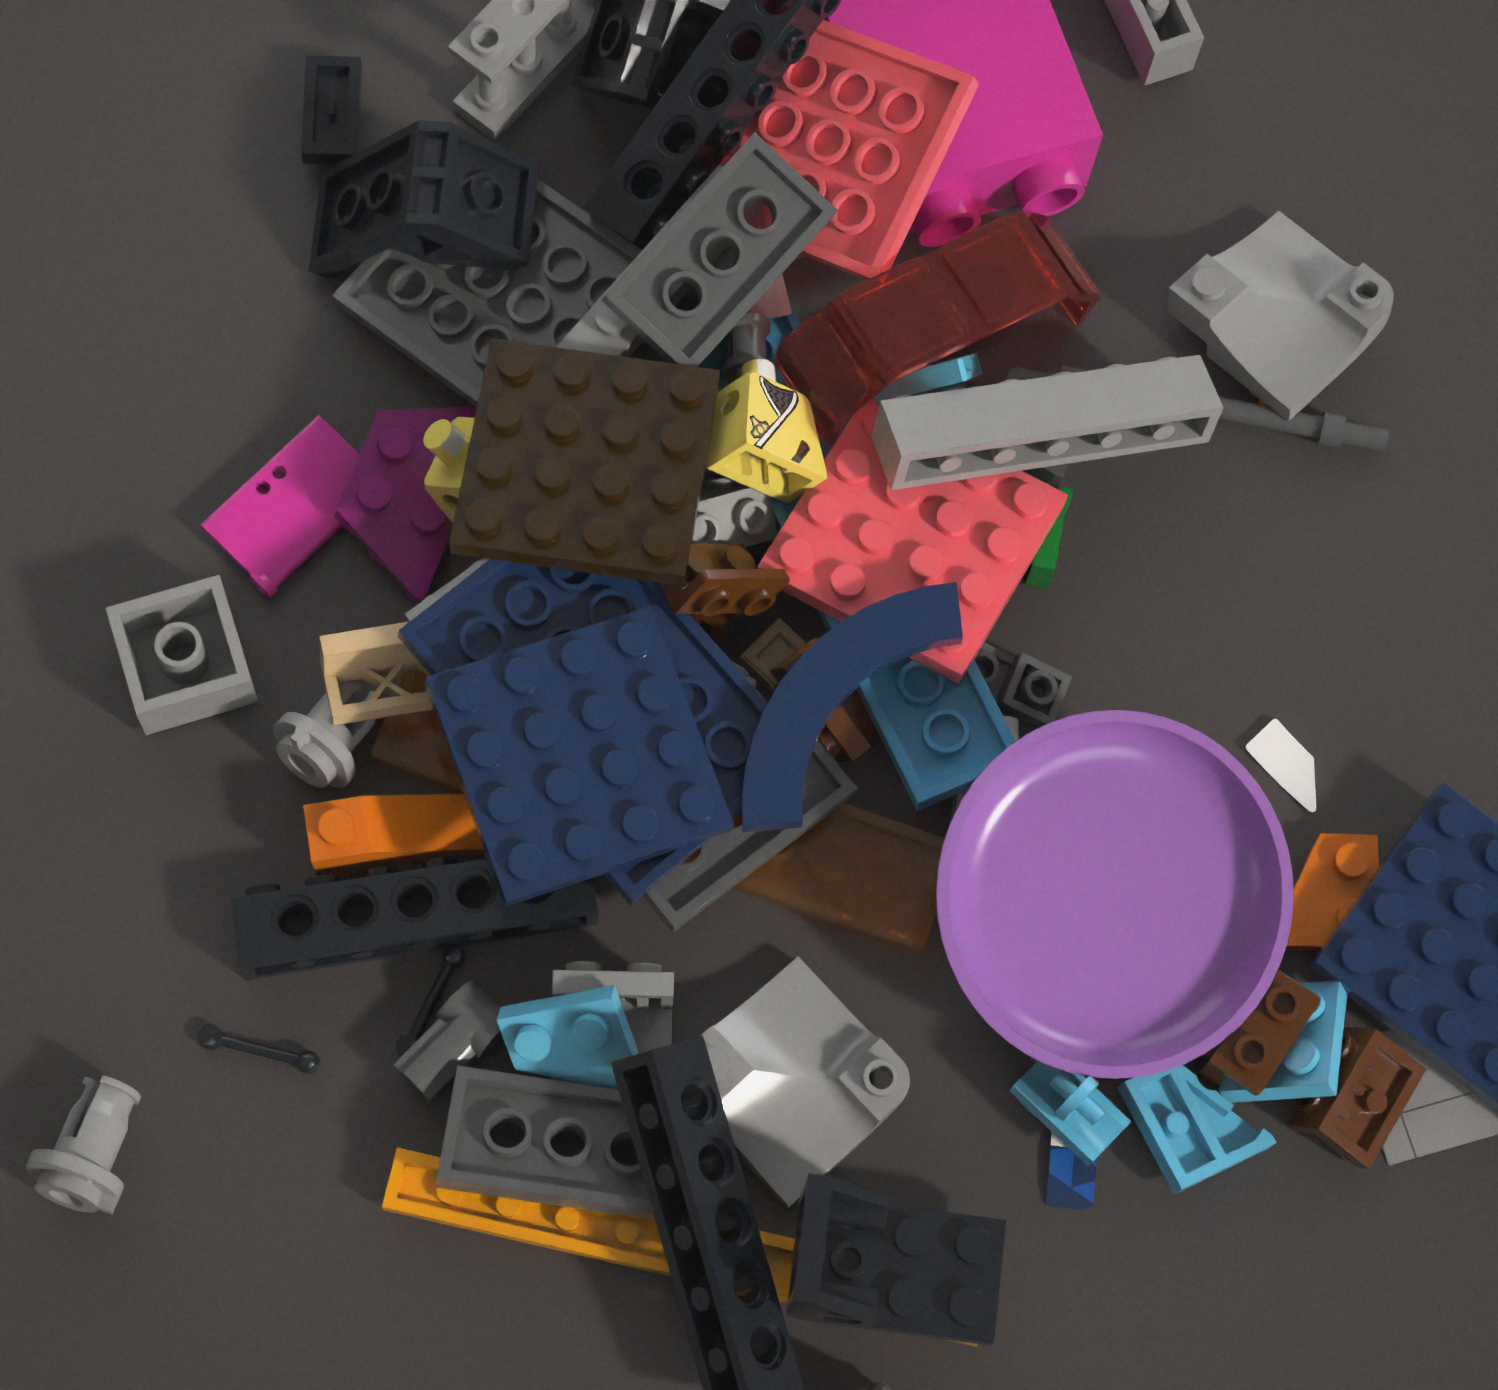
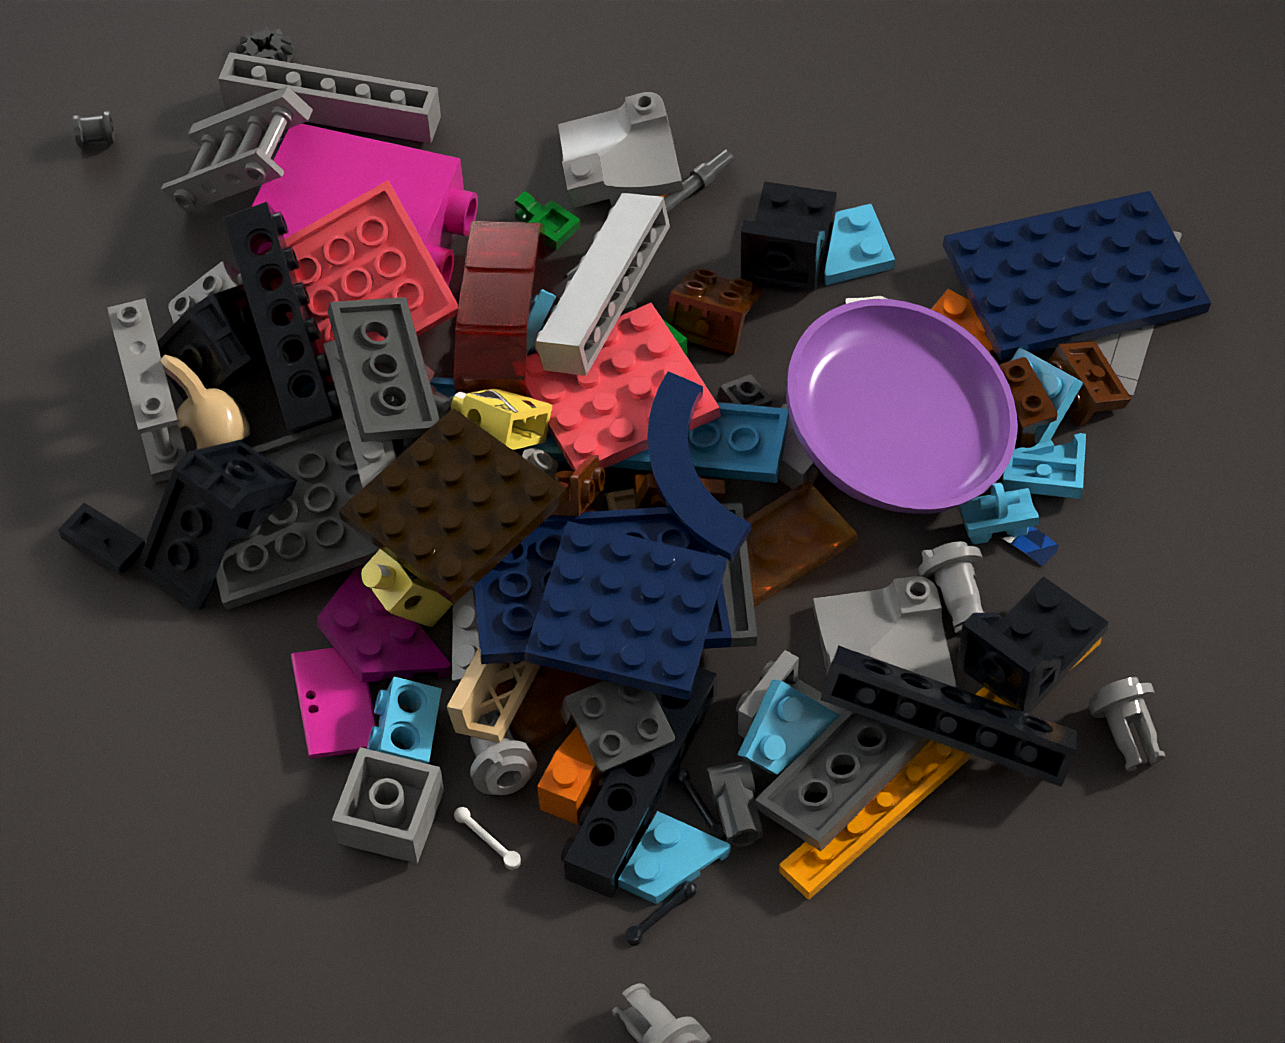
camera: 45 degrees left, 15 degrees down
(220, 834) = (511, 858): none -> white hinge
(304, 616) = (411, 729): none -> medium azure brick
(334, 1011) = (669, 857): none -> medium azure wing
(436, 845) = (617, 722): none -> dark grey bracket
(553, 105) = (207, 413): none -> tan piece
(929, 1118) = (953, 572): none -> light grey piece
(1125, 298) = (557, 221): none -> green plate
(1135, 567) = (711, 309): none -> reddish brown bracket
(1312, 591) = (787, 236): none -> black bracket
(1363, 681) = (857, 246): none -> medium azure wing

